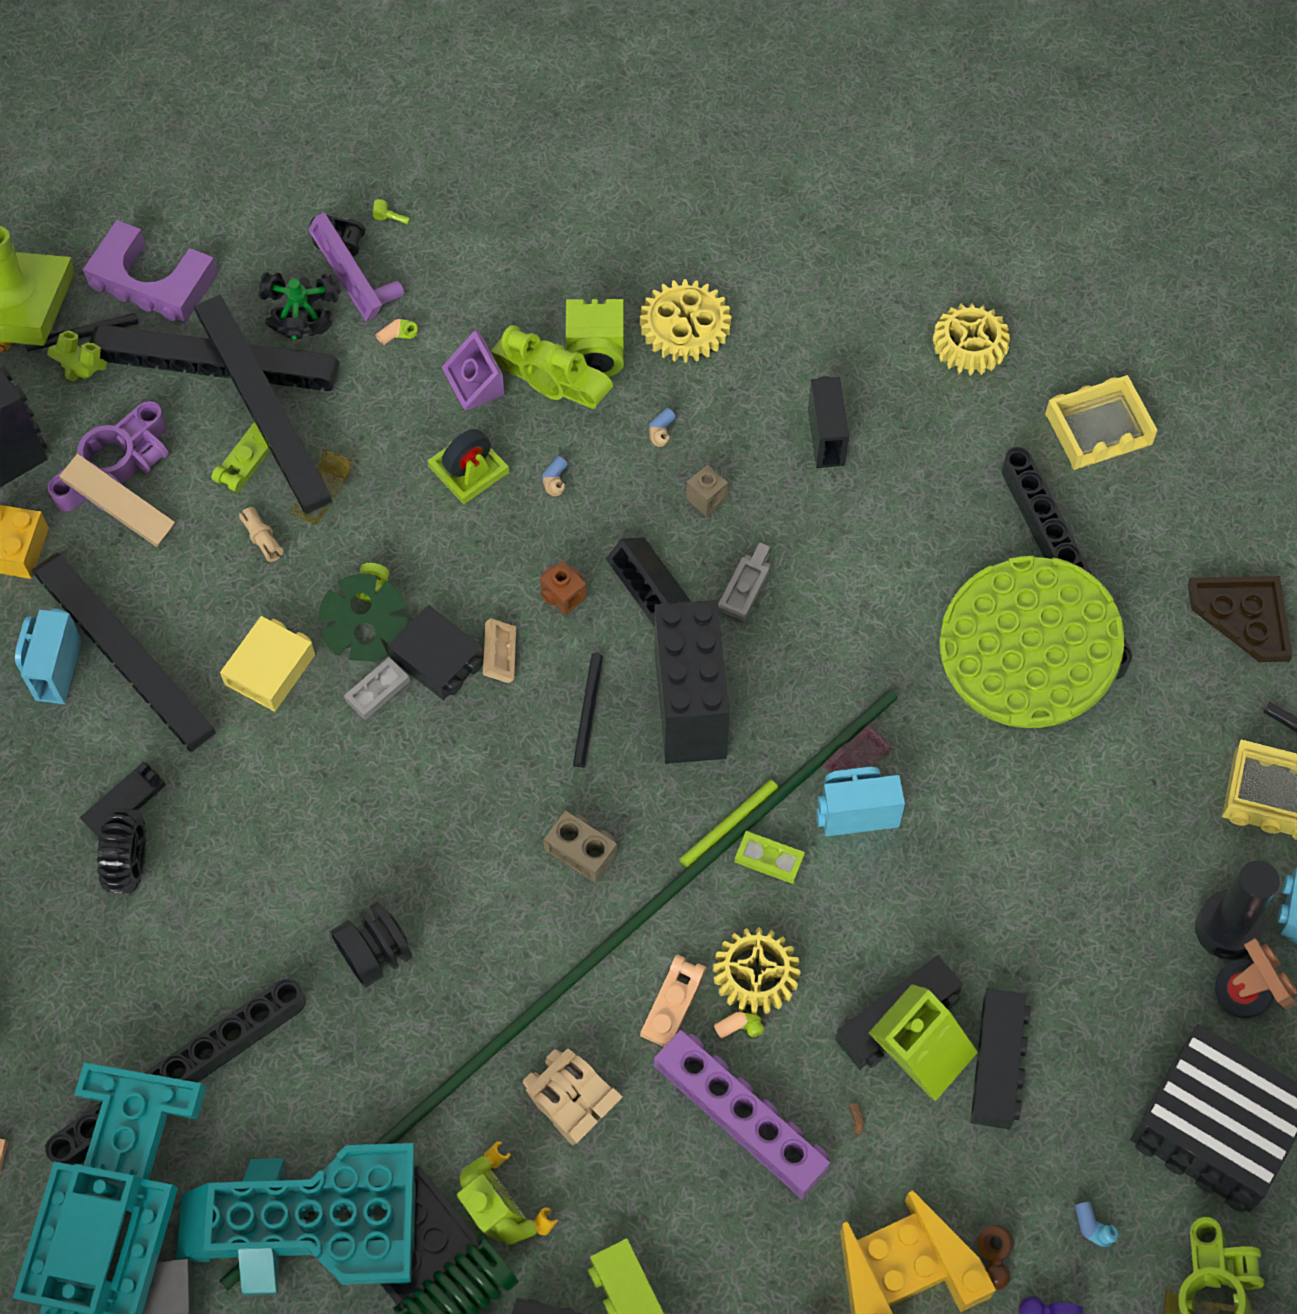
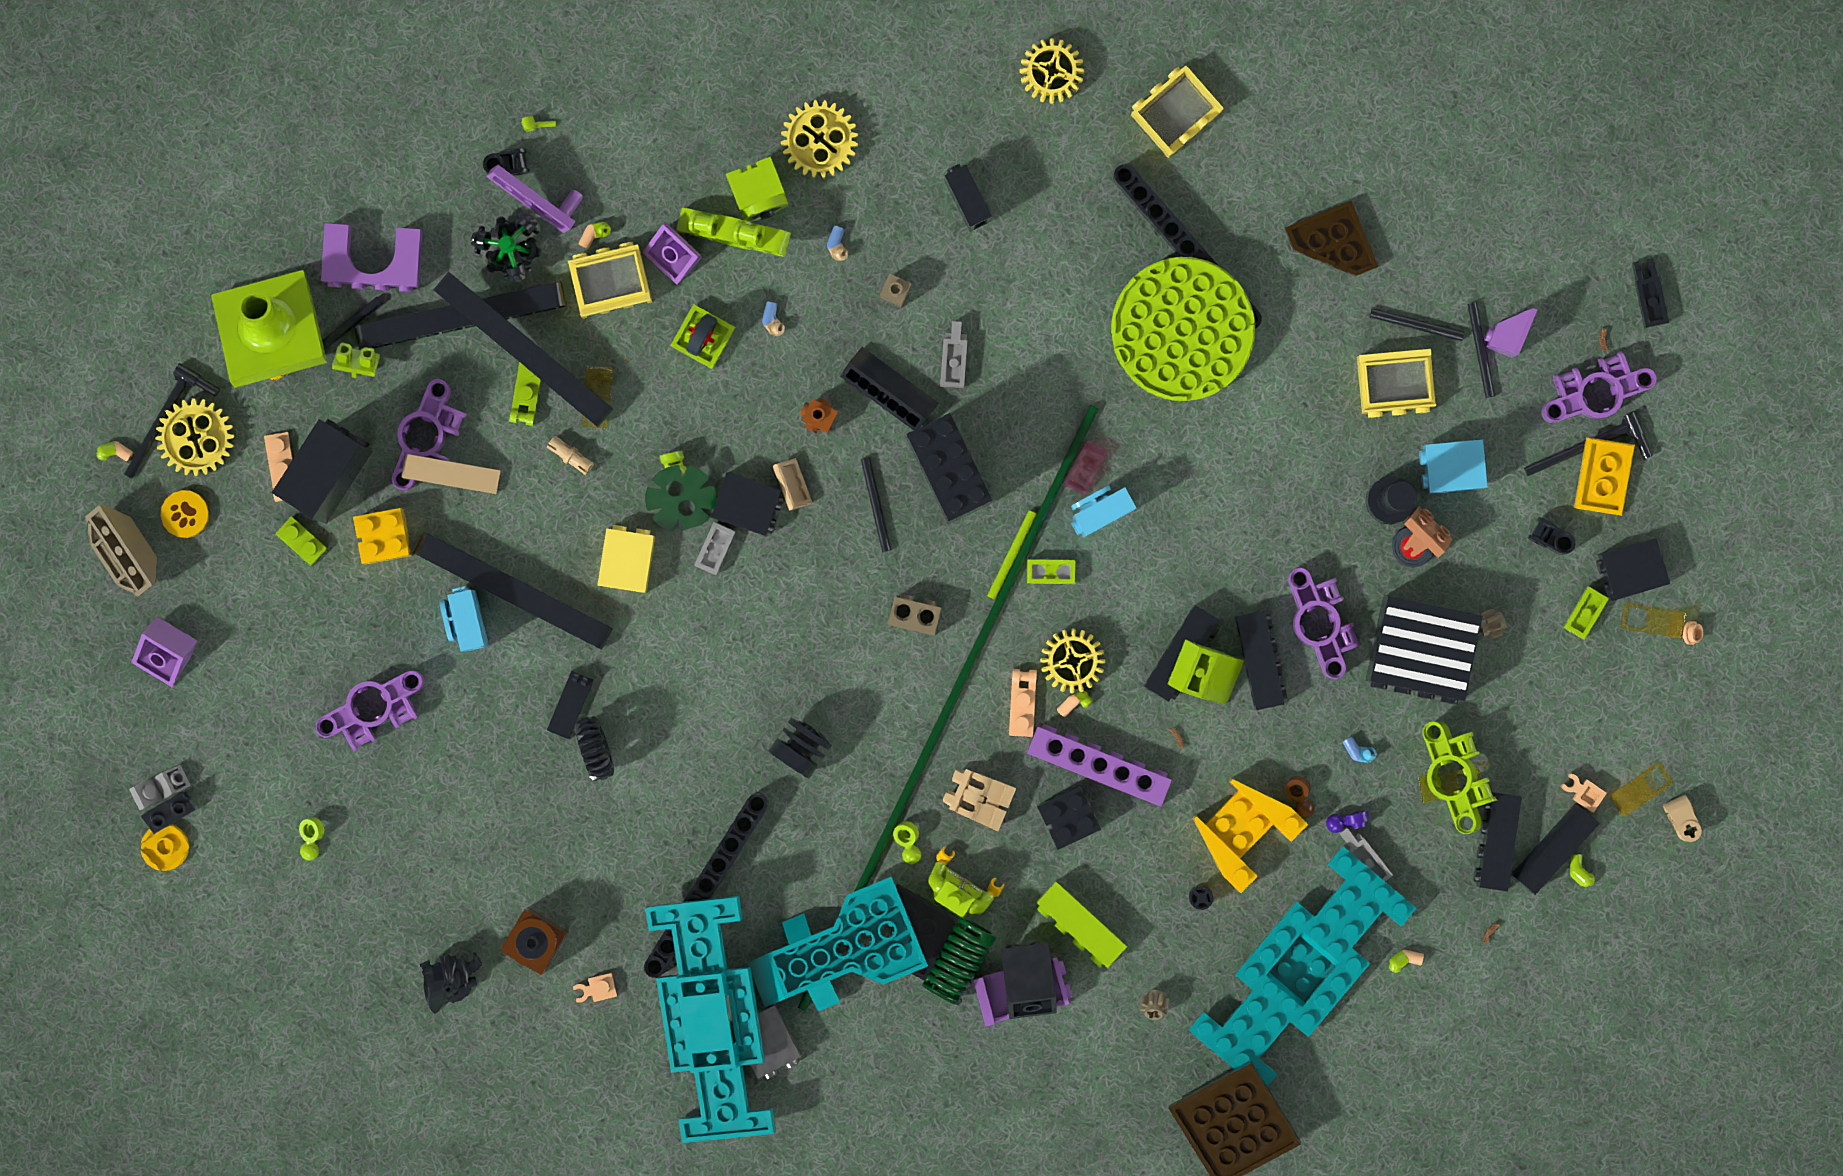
camera: 20 degrees left, 25 degrees up
(392, 374) = (609, 279): none -> window
(455, 1136) = (911, 853): none -> lime plate
(678, 1163) = (1069, 817): none -> black piece
(1110, 1010) = (1330, 647): none -> medium lavender piece

